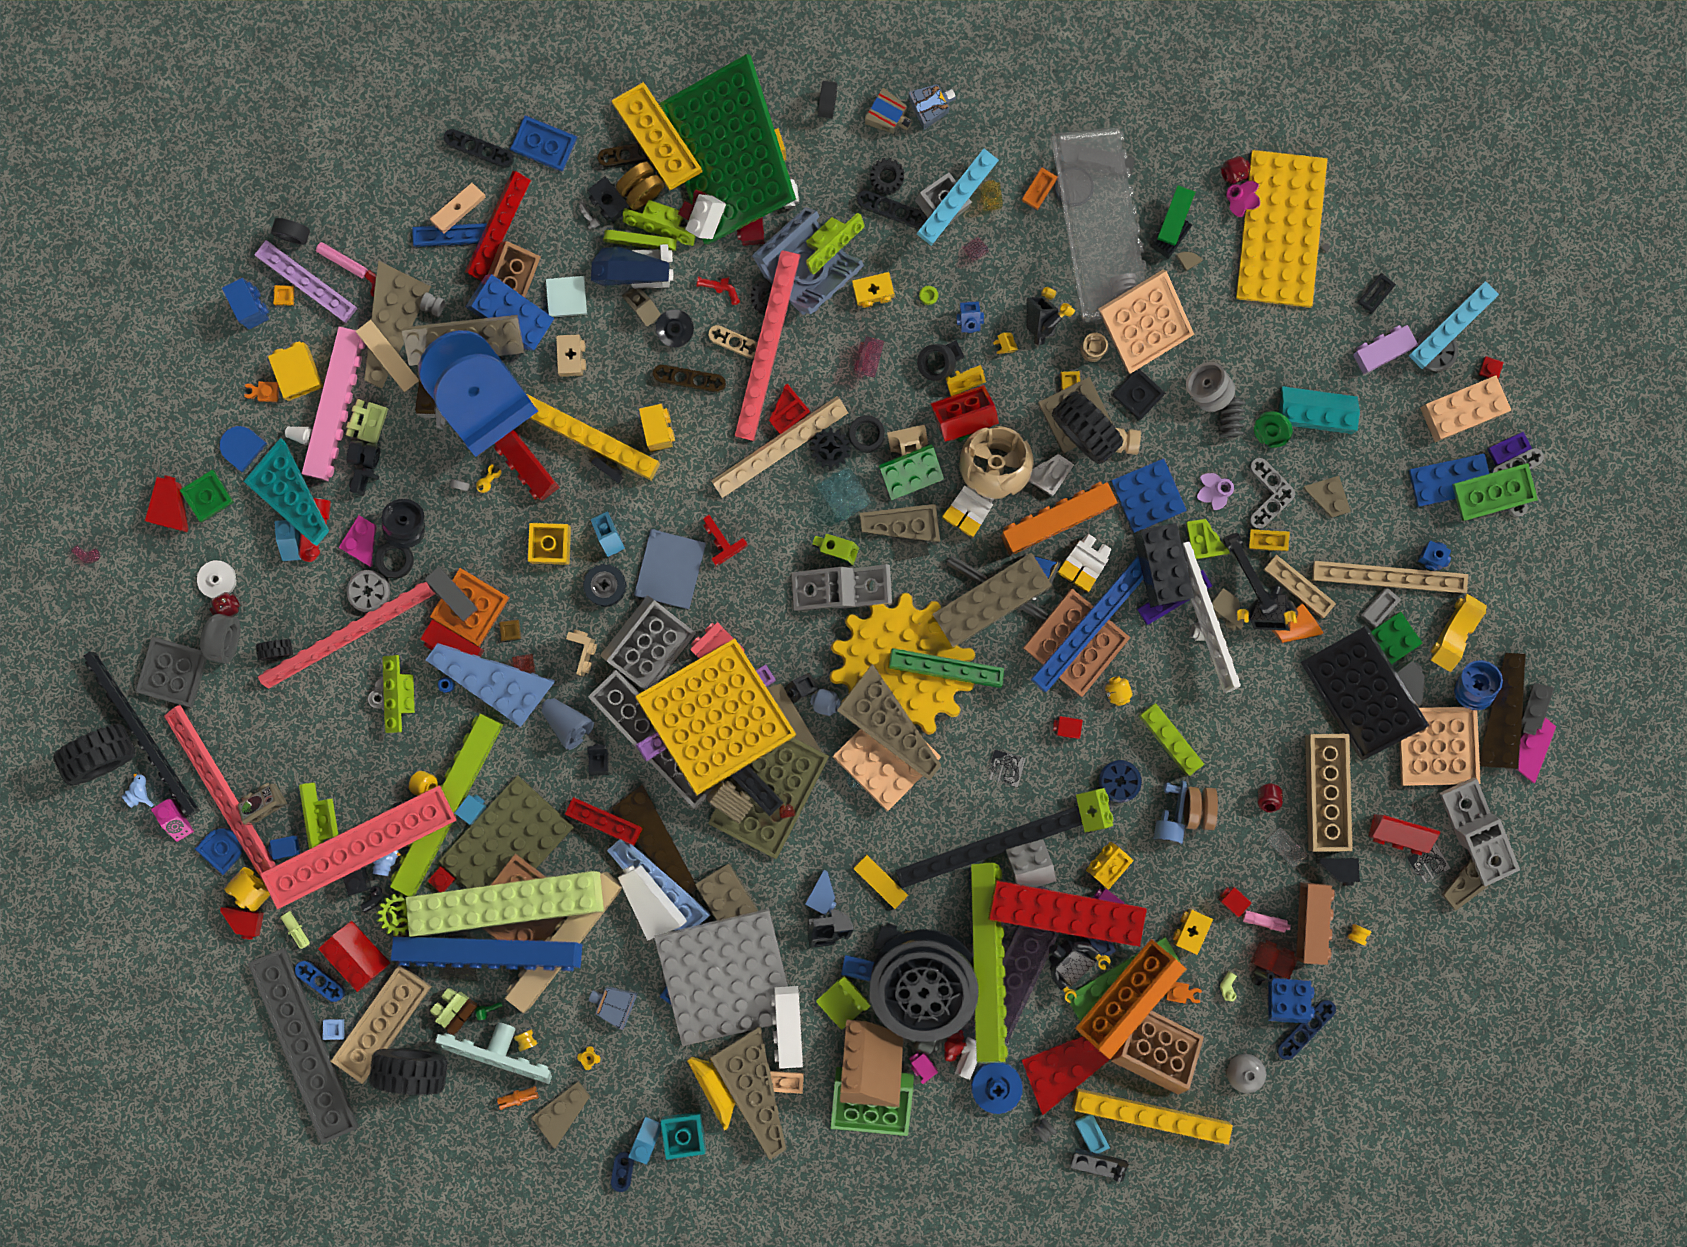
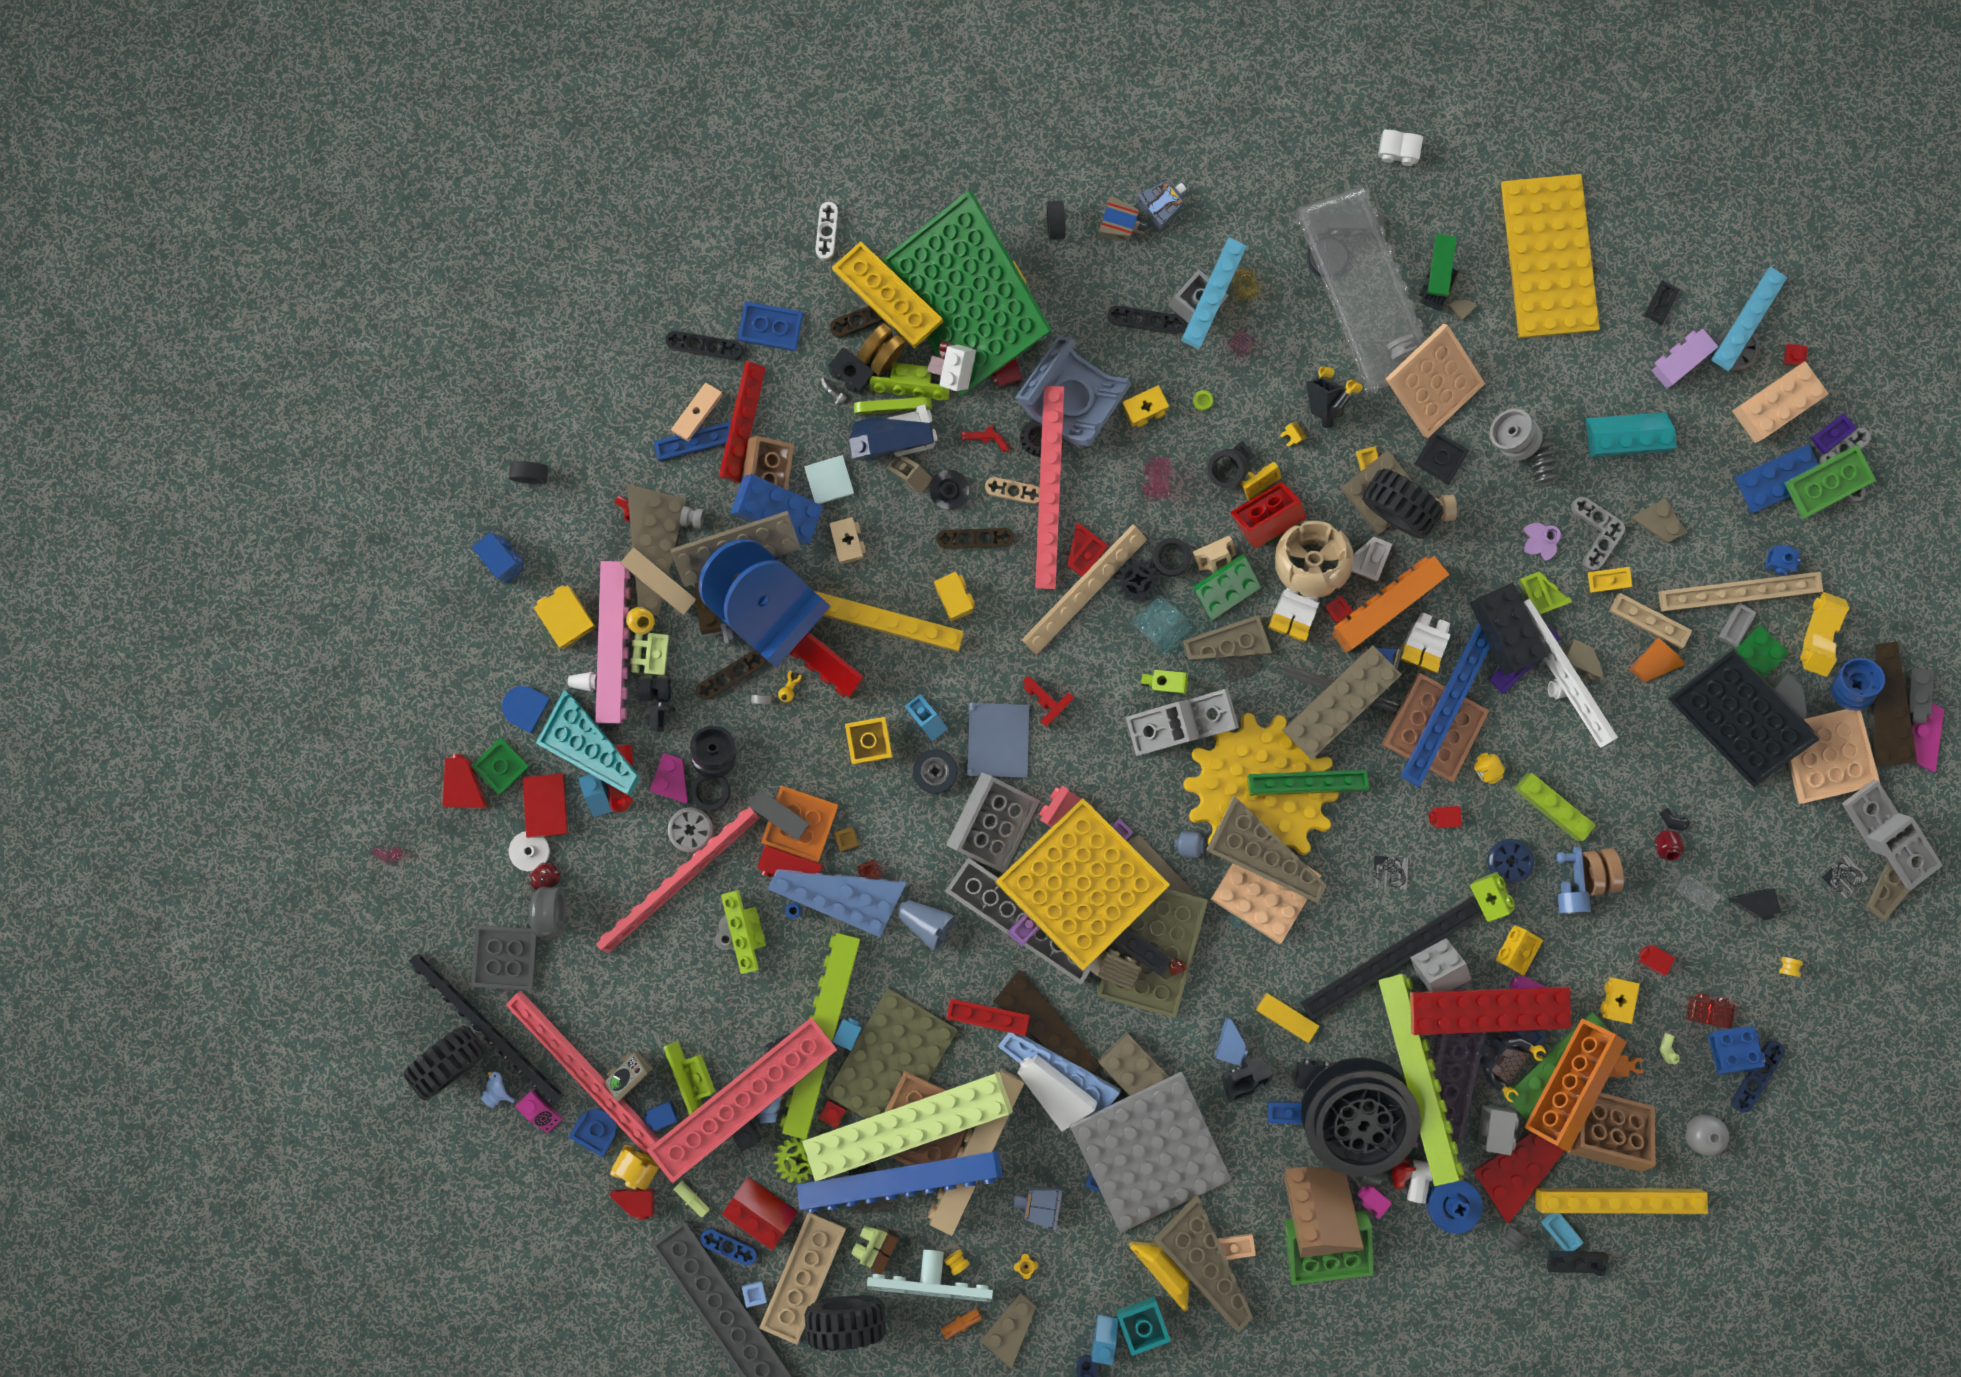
camera: 15 degrees left, 0 degrees up
(239, 540) = (545, 805): none -> red tile
(265, 391) = (537, 644): orange plate -> none
(274, 649) = (606, 912): black tyre -> none
(283, 295) = (535, 540): light orange tile -> none
(305, 281) = (554, 521): lavender plate -> none
(341, 260) = (587, 491): bright pink axle -> none
(363, 388) = (640, 620): none -> yellow head
(375, 899) = (767, 1149): black arm -> none
(422, 782) = (791, 1018): yellow head -> none
(437, 458) = (730, 673): none -> dark brown beam
(481, 1011) = (904, 1241): green hand -> none
(589, 649) = (923, 831): tan bracket -> none
(598, 760) = (968, 954): black bracket -> none
(600, 462) = (903, 646): black plate -> none
(615, 80) = (820, 244): none -> white beam
(788, 1027) = (1227, 1190): white brick -> none
(801, 687) = (1161, 834): black bracket -> none
(831, 239) = (1090, 363): lime bracket -> none
(843, 1002) = (1276, 1151): lime bracket -> none
(890, 165) = (1133, 274): black tyre -> none
(970, 317) = (1252, 414): blue brick -> none
(1011, 514) = (1338, 609): none -> red plate
(1039, 188) = (1293, 266): orange plate -> none
(1050, 1025) = (1497, 1129): none -> light grey brick
(1094, 347) = (1386, 418): tan wheel -> none
(1148, 495) = (1475, 560): blue plate -> none
(1163, 98) = (1400, 147): none -> white brick
(1235, 169) = (1490, 205): dark red head -> none
(1245, 199) = (1507, 233): dark pink plate -> none
(1261, 975) = (1699, 1031): black arm -> none
(1266, 603) = (1624, 646): black piece -> none
(1266, 921) = (1698, 973): bright pink piece -> none
(1273, 429) = (1588, 464): green tile -> none
(1276, 621) = (1629, 653): torso -> none
(1279, 778) = (1672, 822): none -> black arm
(1314, 923) = (1744, 965): nougat brick -> none
(1328, 792) = (1728, 827): tan brick -> none
(1402, 834) = (1813, 854): red slope -> none

